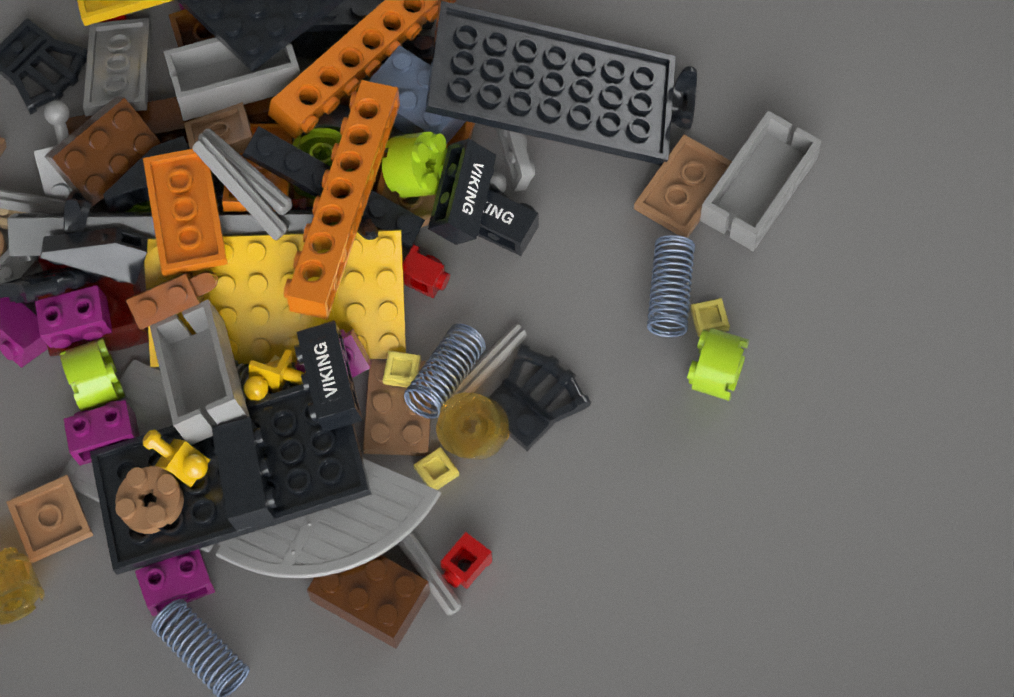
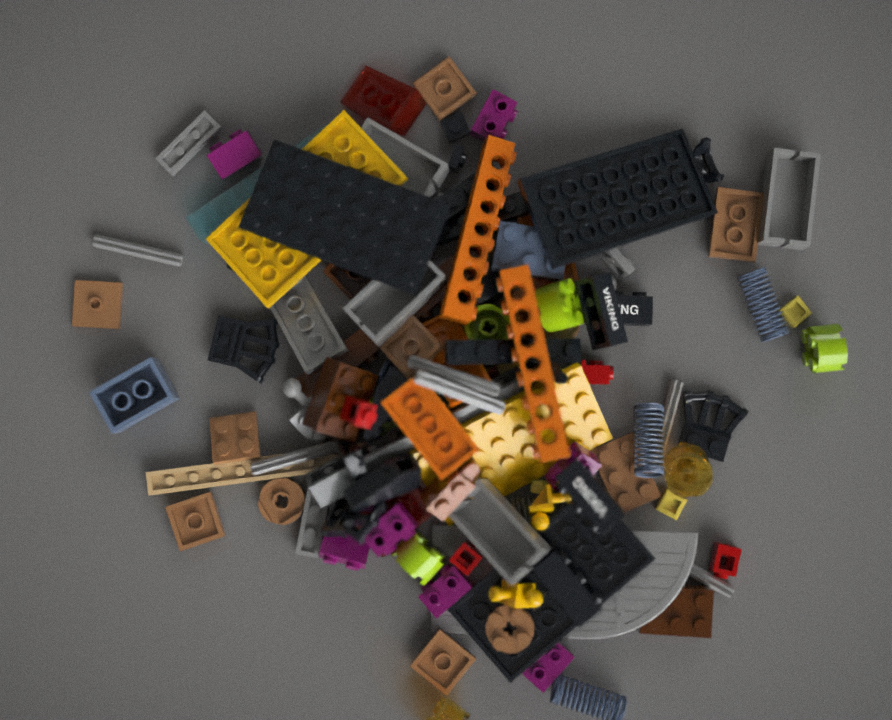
camera: 30 degrees left, 20 degrees up
(113, 160) = (364, 415): none -> red brick
(147, 398) = (467, 557): none -> red brick
(401, 368) = (618, 451): light yellow tile -> none

